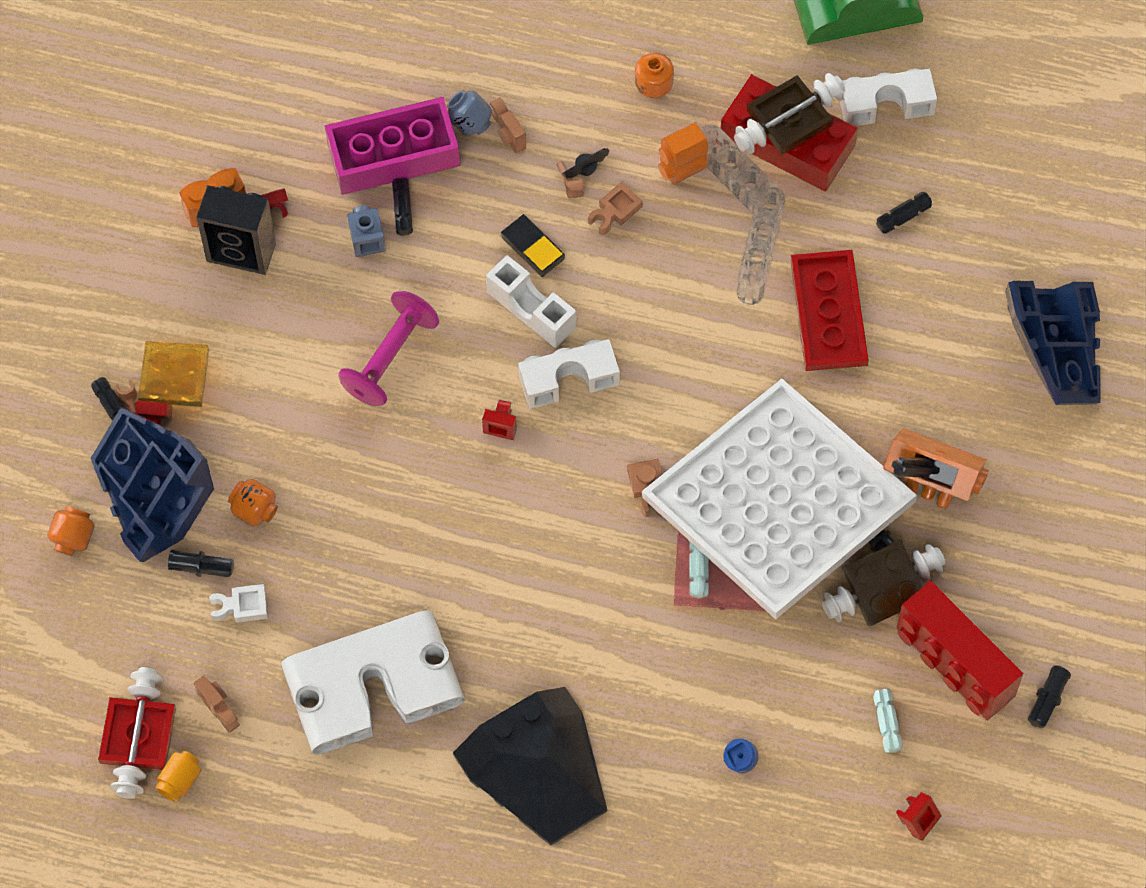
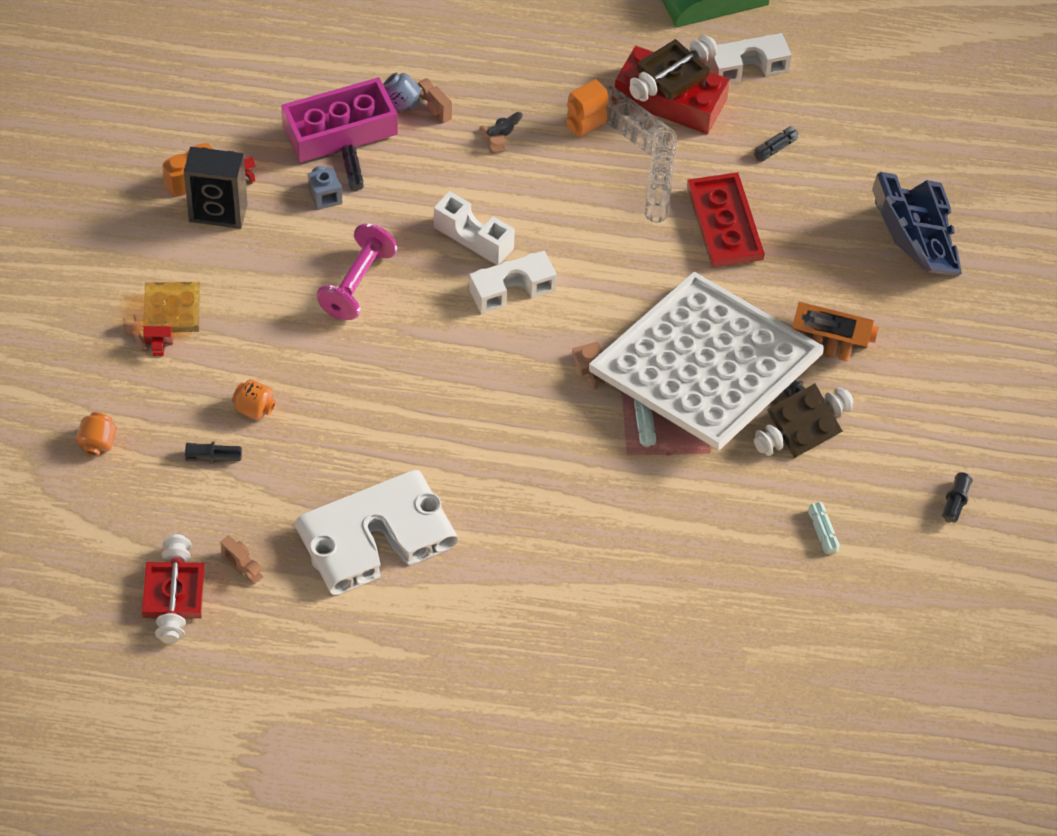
camera: 10 degrees left, 10 degrees down
(107, 396) = (121, 335): black axle -> none
(153, 482) = (164, 387): dark blue wedge -> none
(178, 776) = (214, 620): light orange brick -> none
(246, 604) = (256, 479): white plate -> none
(500, 422) = (459, 323): red tile -> none
(532, 245) = (468, 188): black tile -> none
(537, 764) = (527, 586): black wedge -> none
(616, 205) = (535, 153): nougat plate -> none
(654, 75) = (553, 54): orange head -> none
(741, 755) = (702, 564): blue tile -> none
(920, 815) = (863, 598): red tile -> none
(958, 651) = (877, 465): red brick -> none

